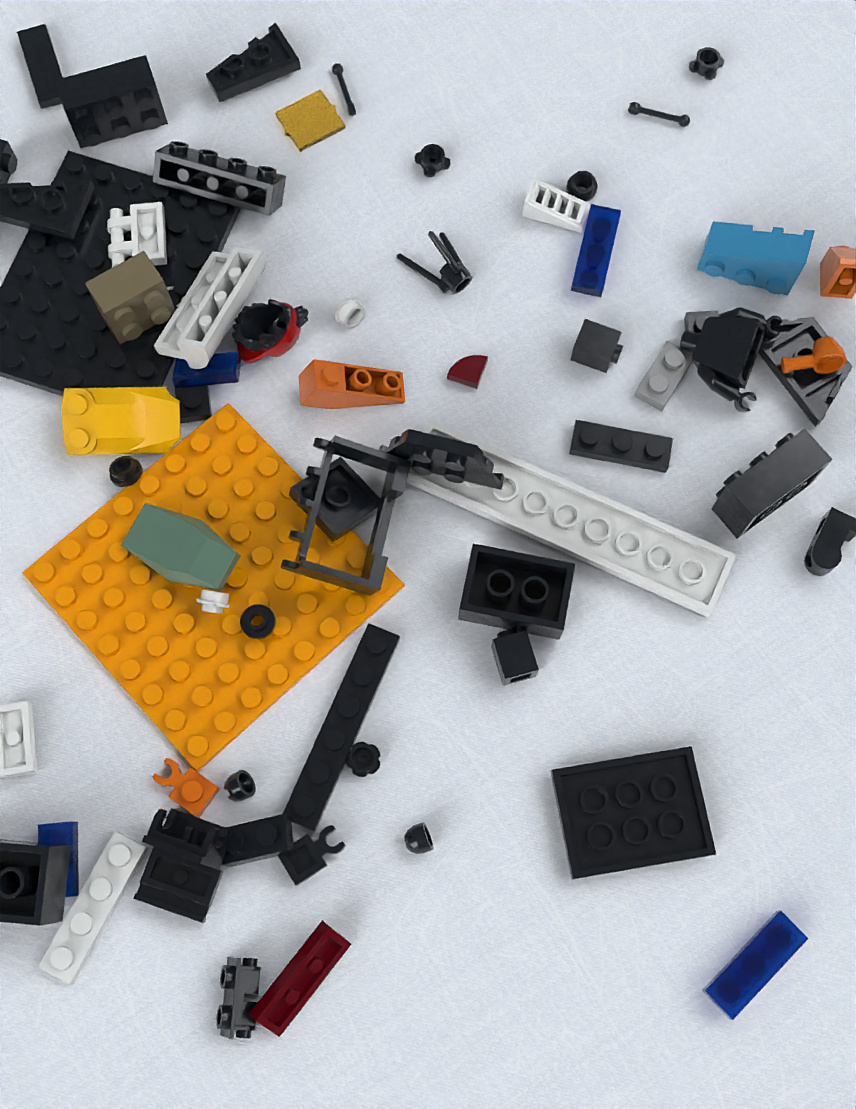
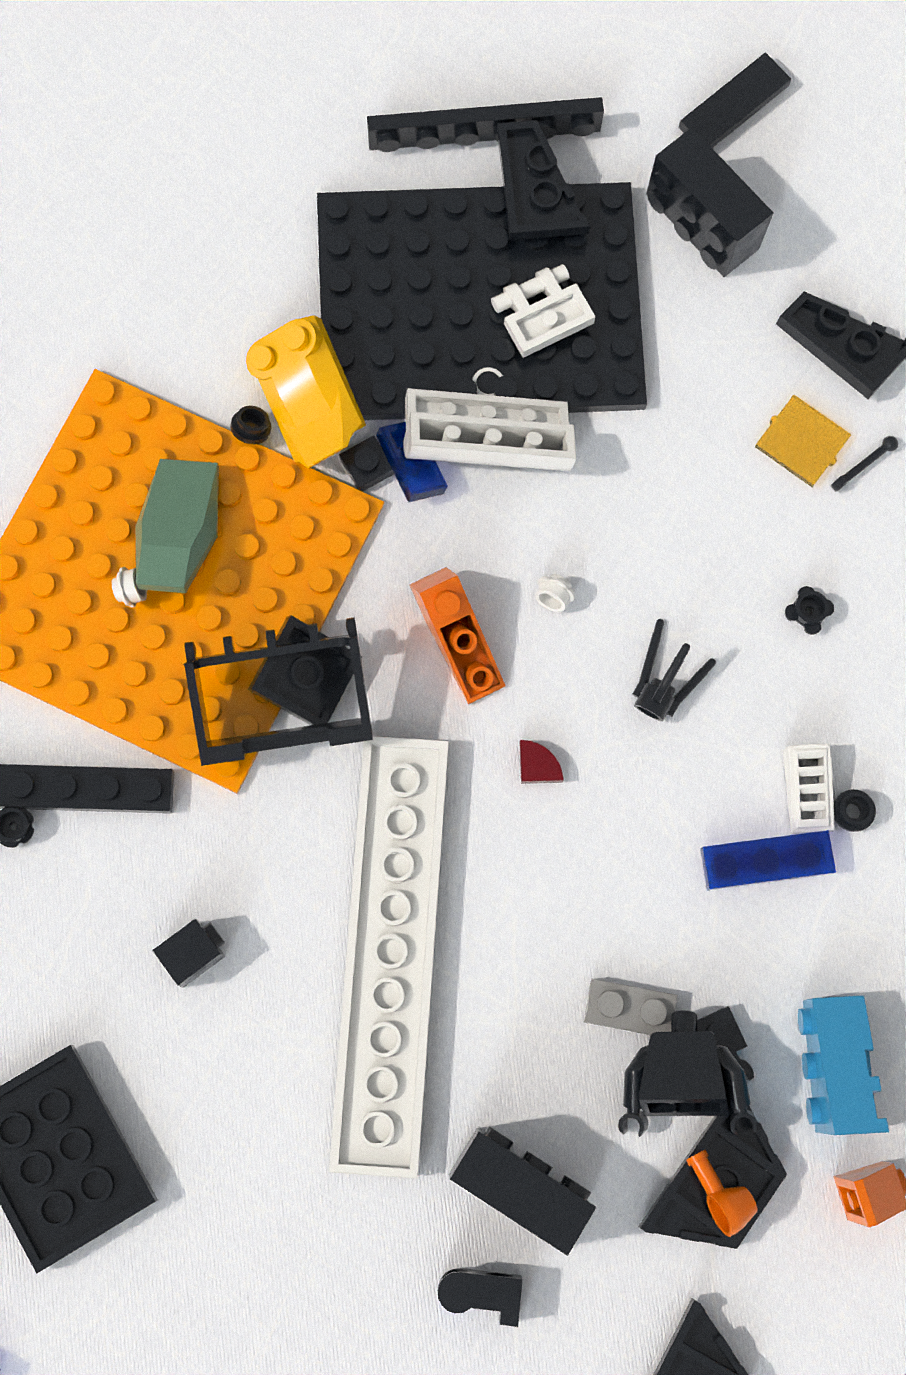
camera: 65 degrees right, 5 degrees up
(131, 297) = (448, 338): dark tan brick -> none
(219, 178) = (662, 369): black brick -> none
(265, 628) = (132, 653): black plate -> none
(267, 329) = (486, 507): black hair -> none
(444, 457) = (387, 787): black wing -> none
(516, 591) = (265, 924): black brick -> none
(597, 346) = (631, 909): black brick -> none
(621, 446) = (512, 986): black plate -> none

